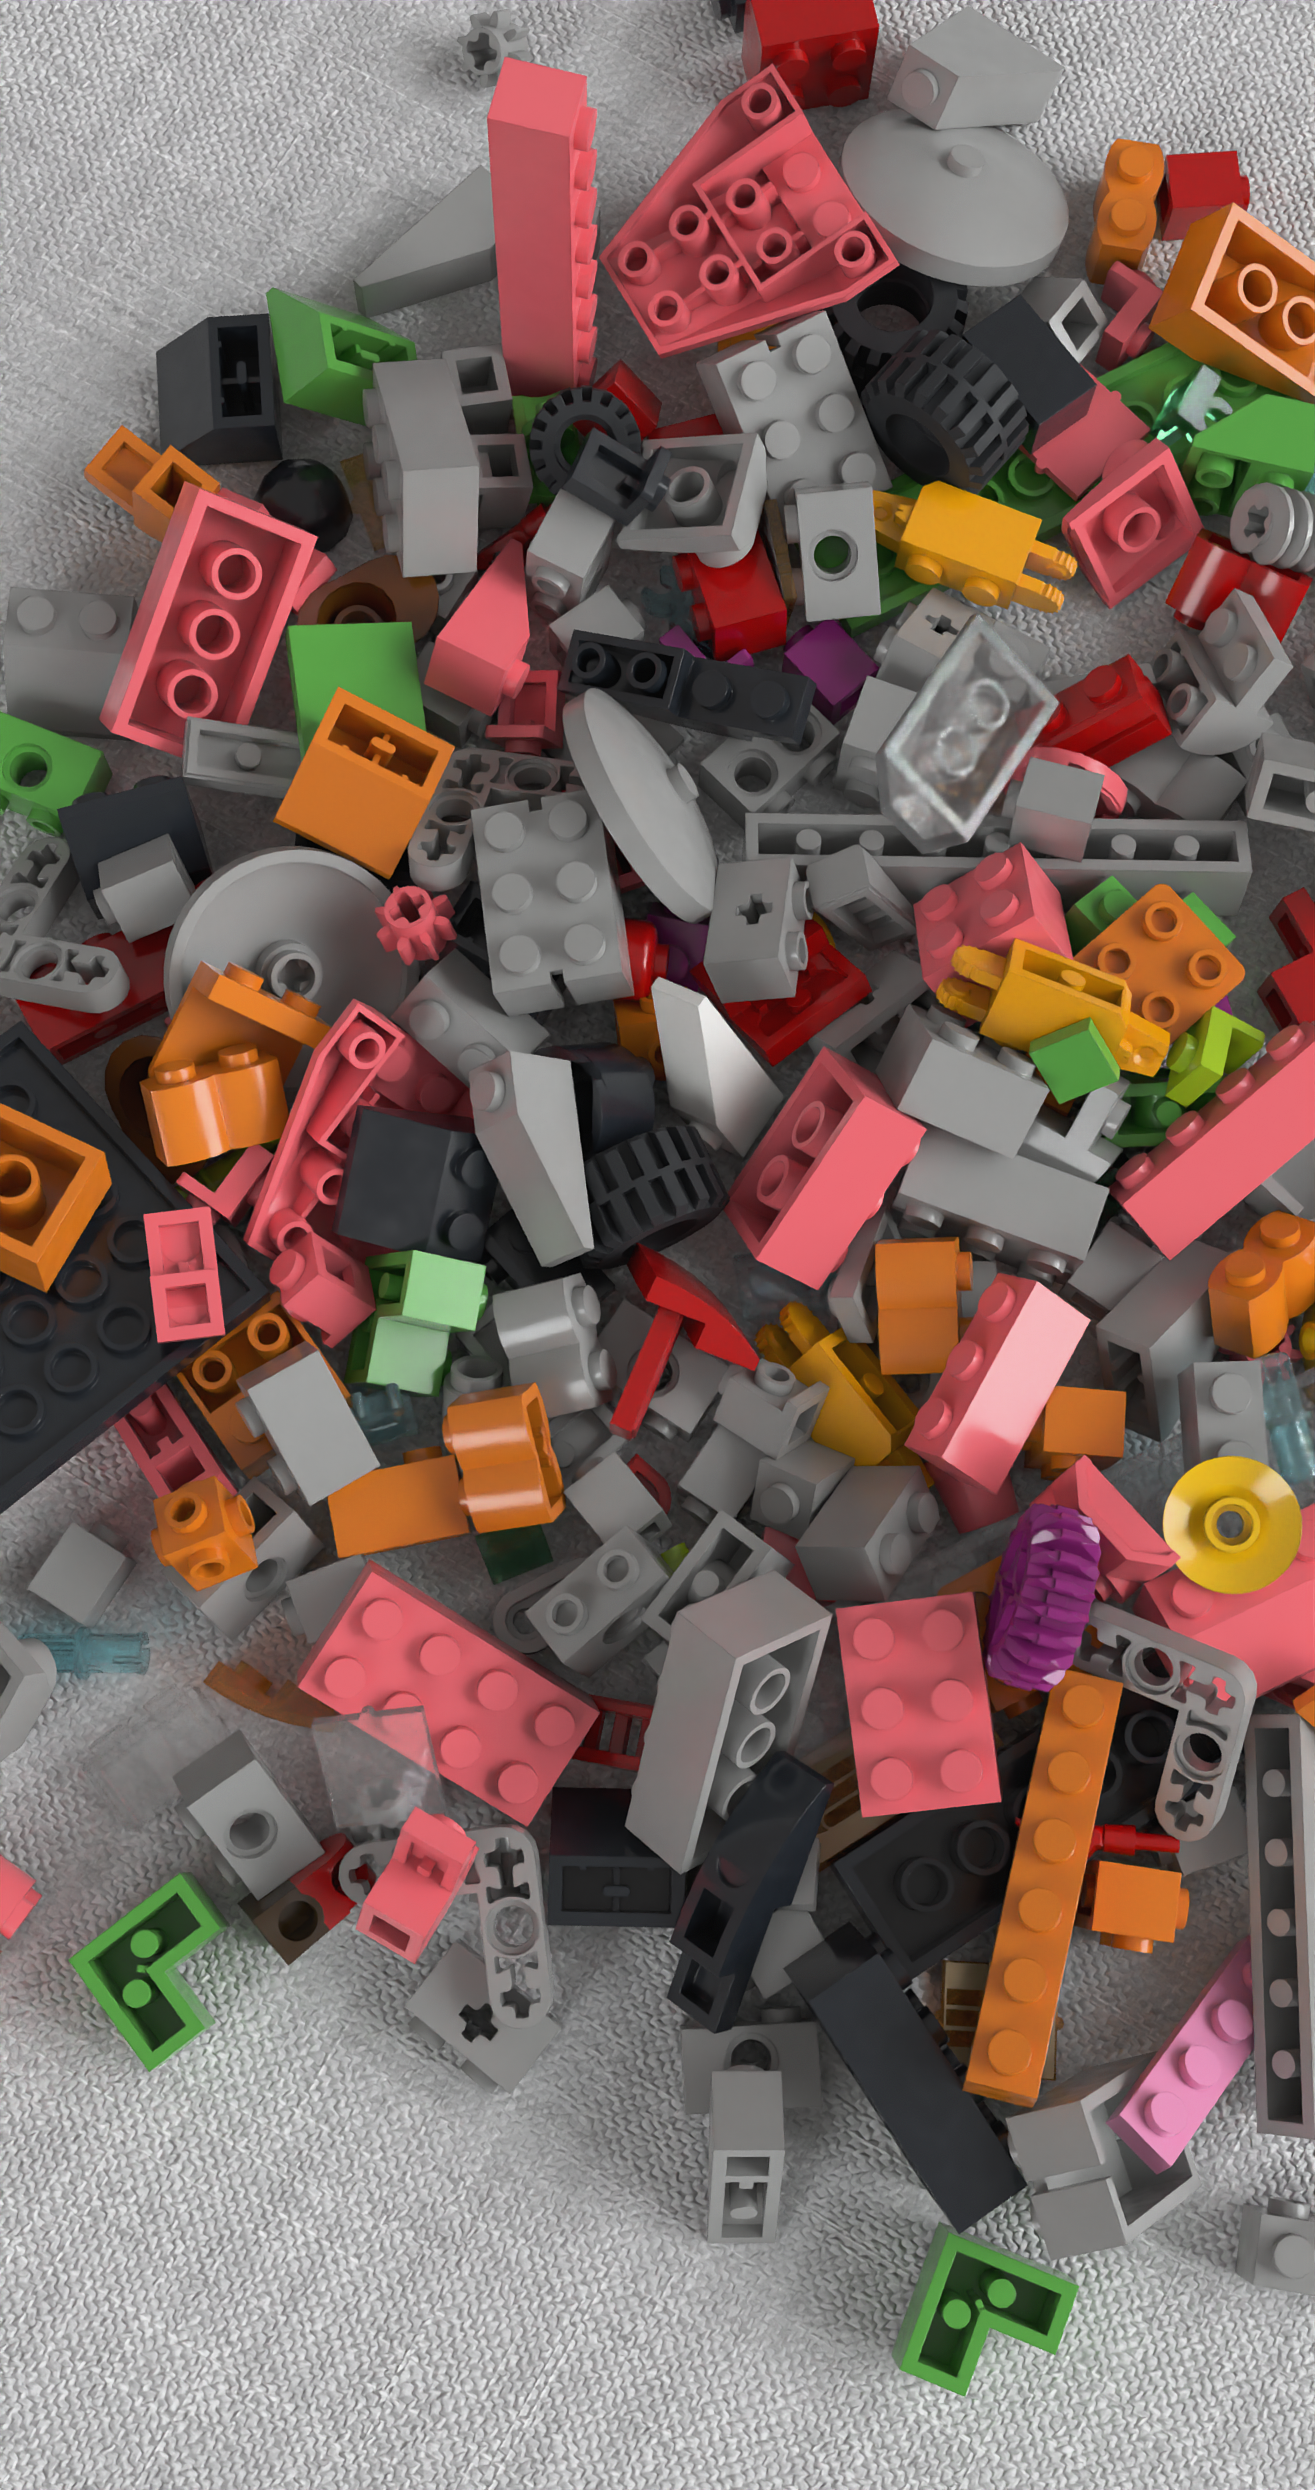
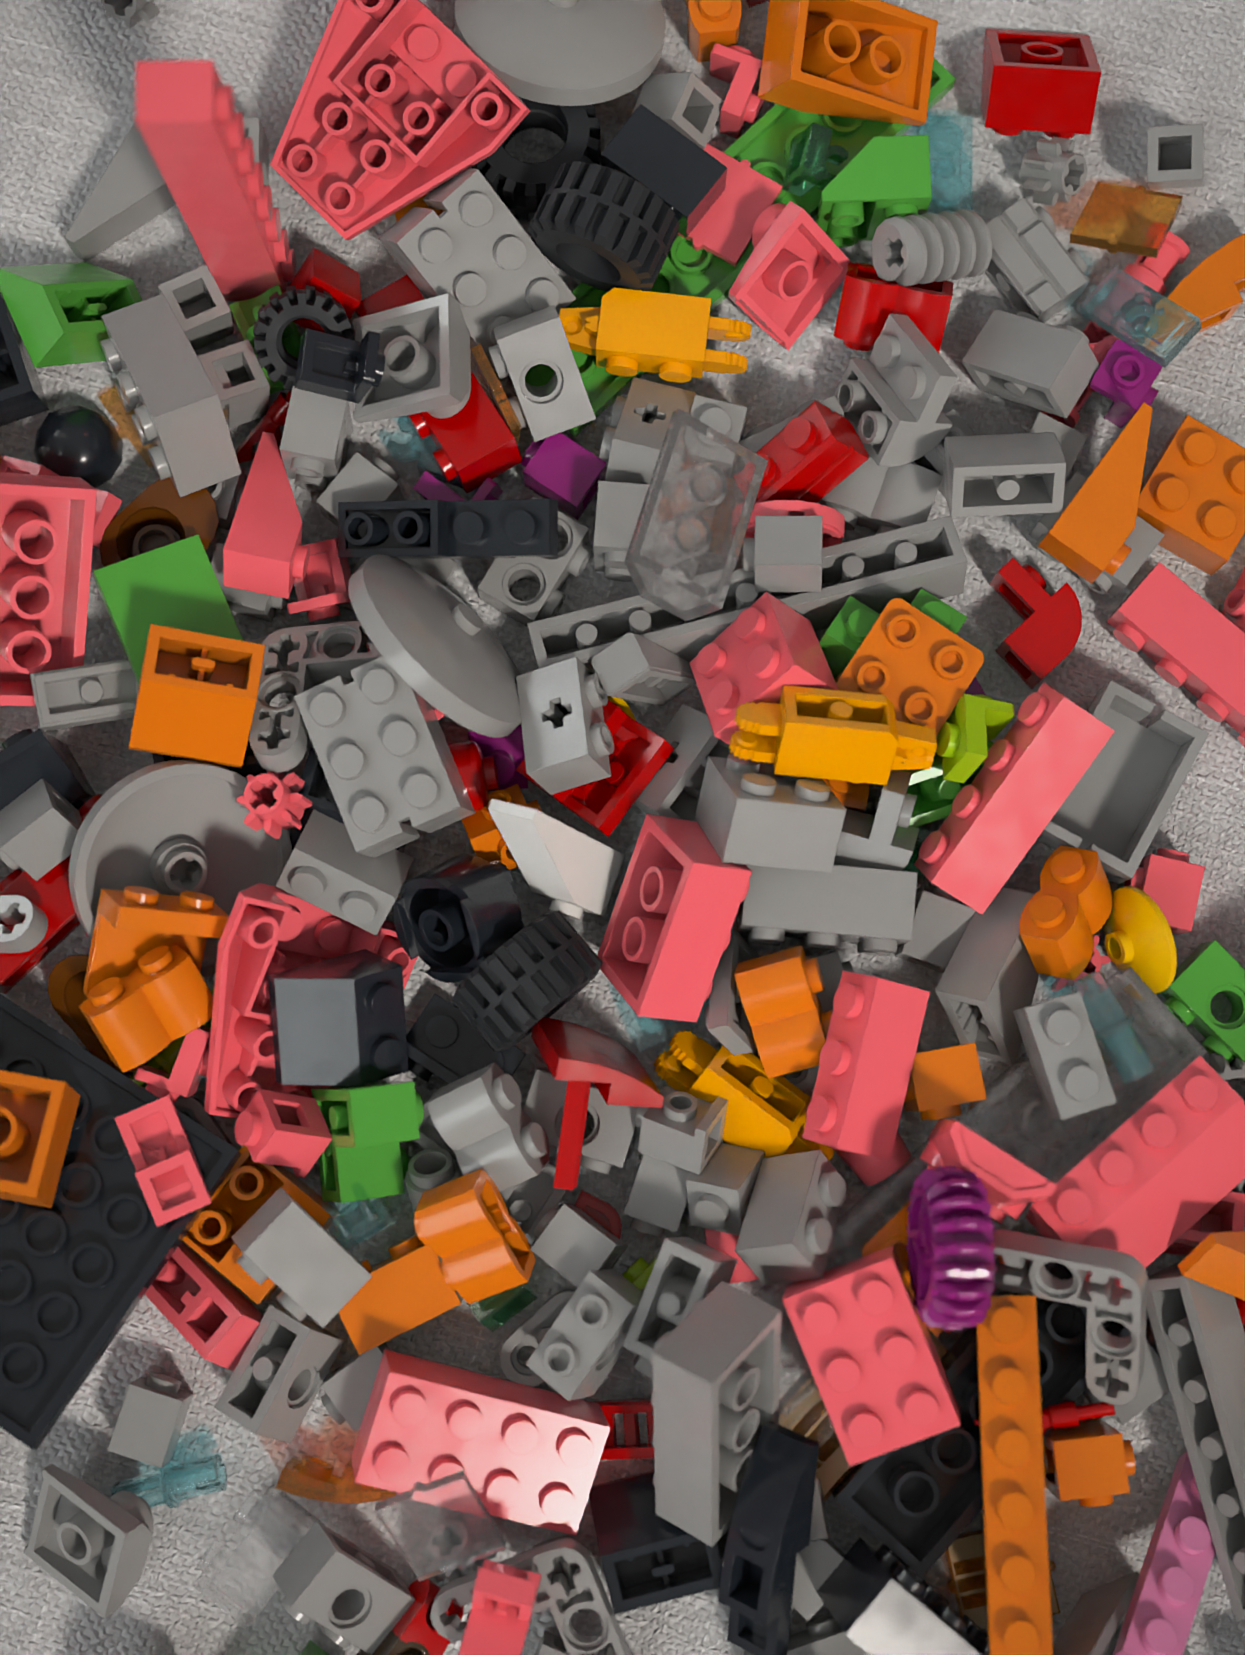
camera: 10 degrees left, 5 degrees up
(204, 1533) = (241, 1373): orange brick -> none
(534, 1145) = (426, 971): light grey slope -> none
(1074, 1060) = (860, 778): bright green tile -> none
(1268, 1531) = (1108, 1165): yellow dish -> none

